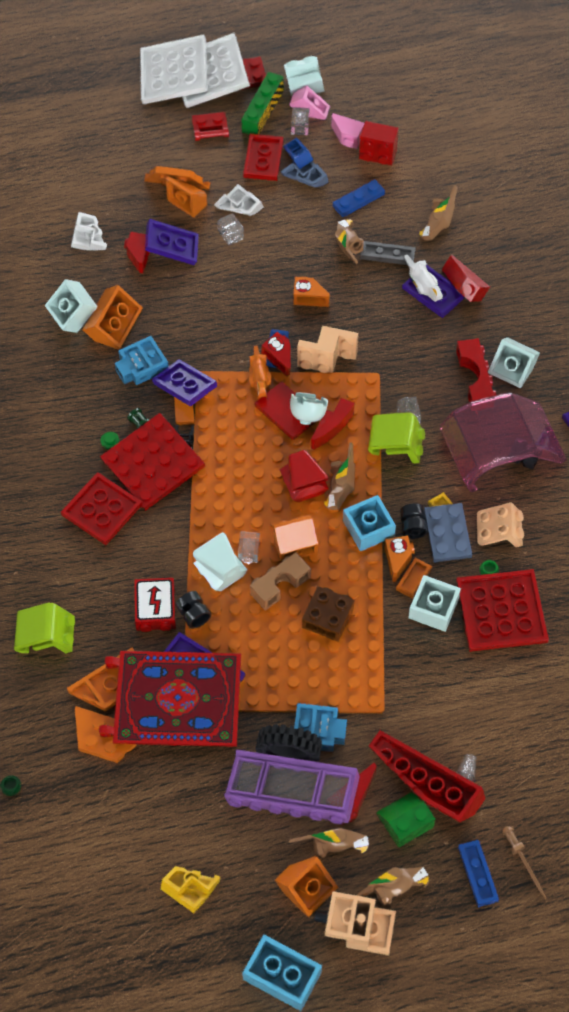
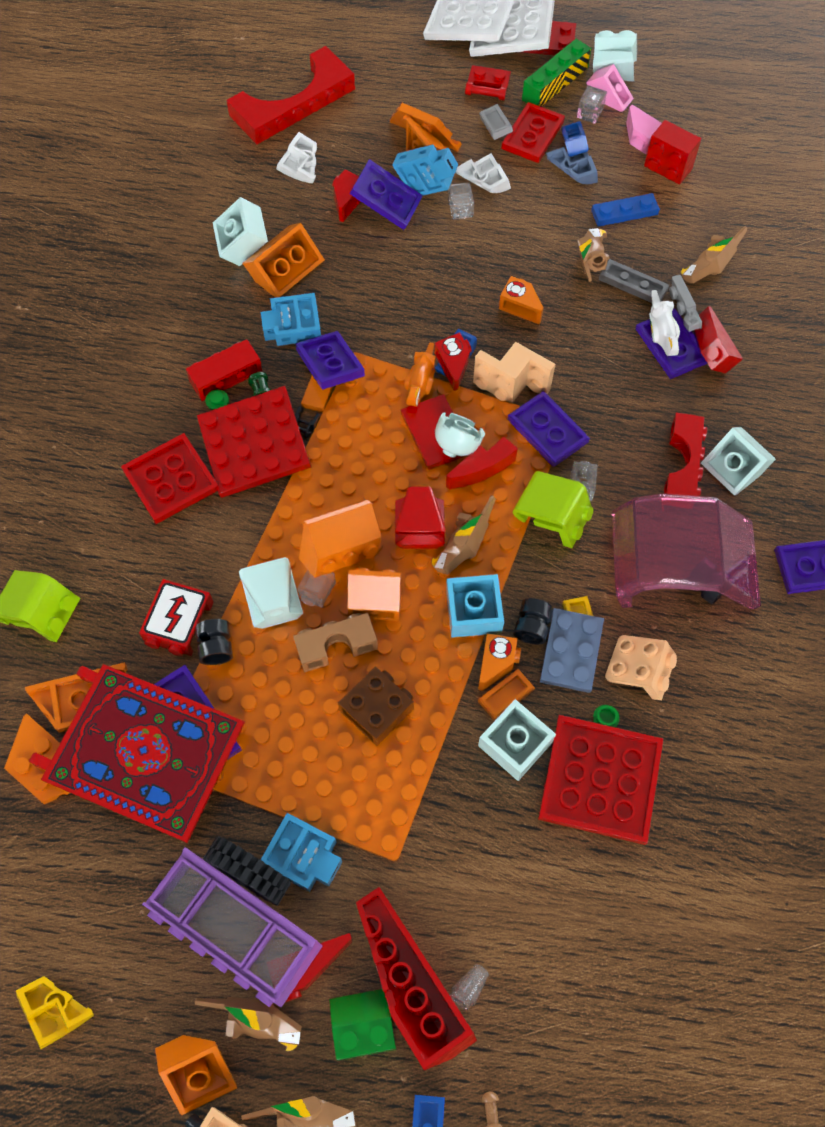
camera: 20 degrees right, 5 degrees up
(44, 208) = (266, 118): none -> red arch
(105, 415) = (224, 369): none -> red brick
(197, 213) = (426, 169): none -> dark azure piece
(231, 157) = (496, 122): none -> light grey tile
(255, 507) = (340, 539): none -> orange slope
(368, 382) = (548, 429): none -> dark purple tile
(433, 258) = (685, 303): none -> light grey hinge

